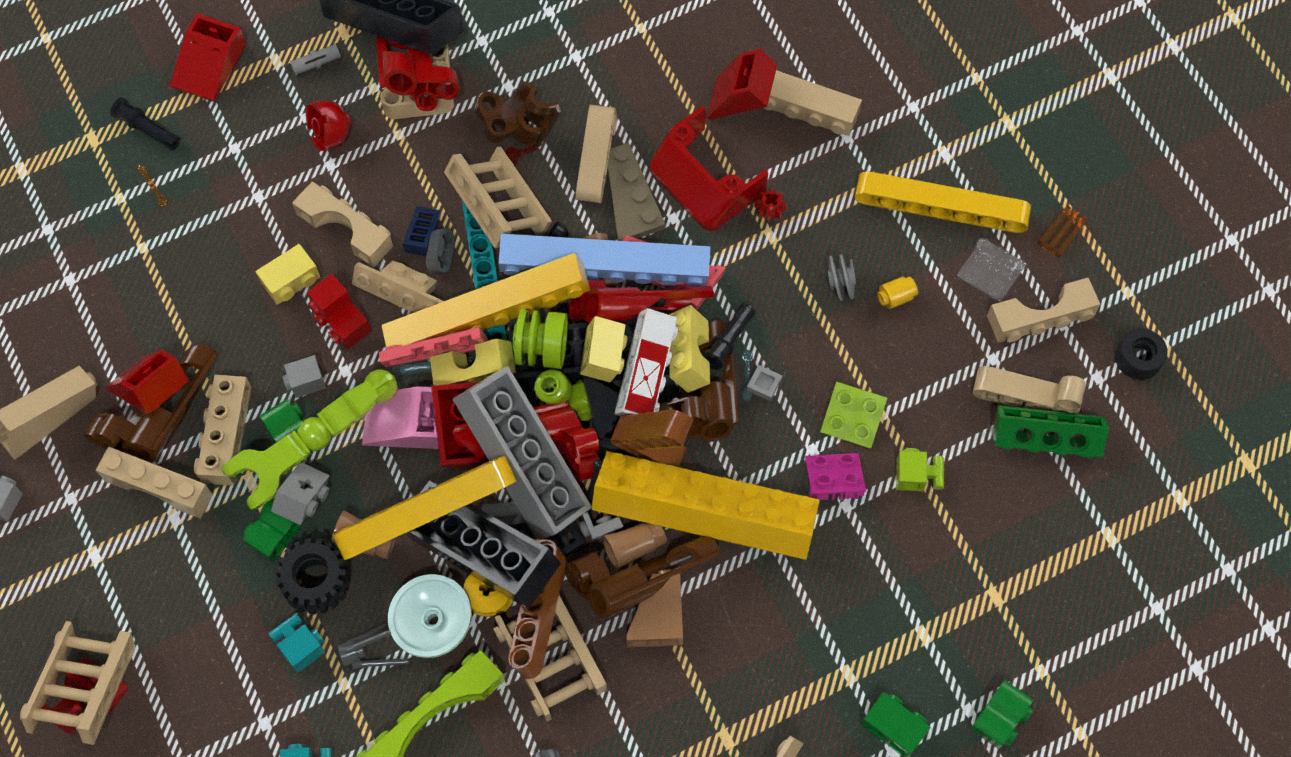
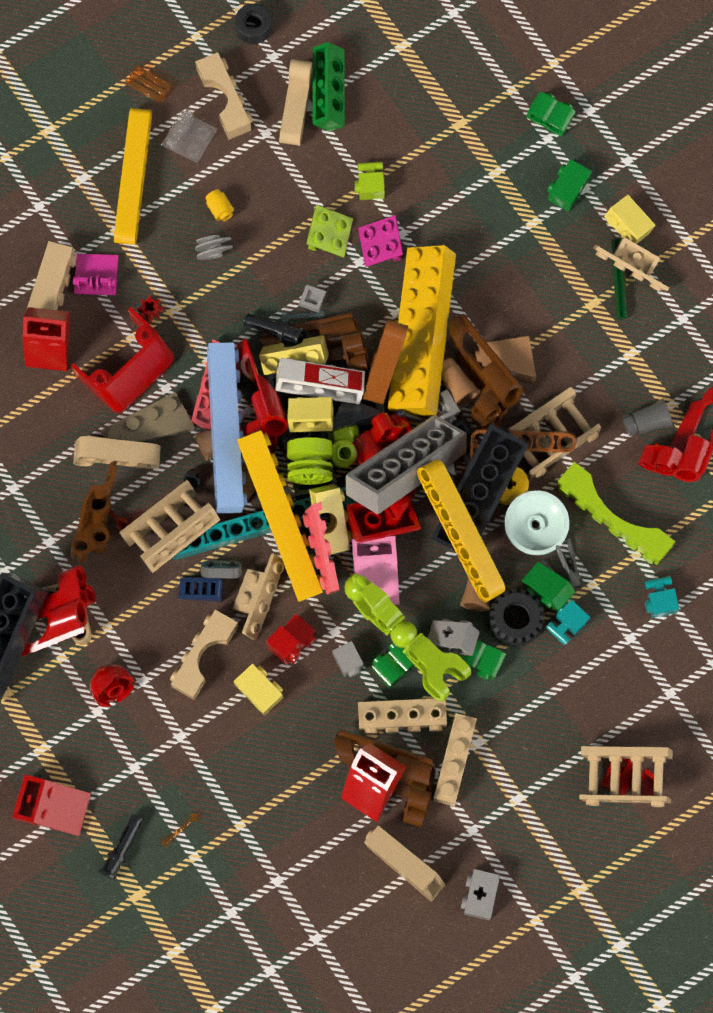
camera: 95 degrees left, 10 degrees up
(299, 66) = (40, 711): light grey pin -> none
(343, 619) = (548, 587): none -> green brick
(821, 154) = (96, 274): none -> dark pink hinge

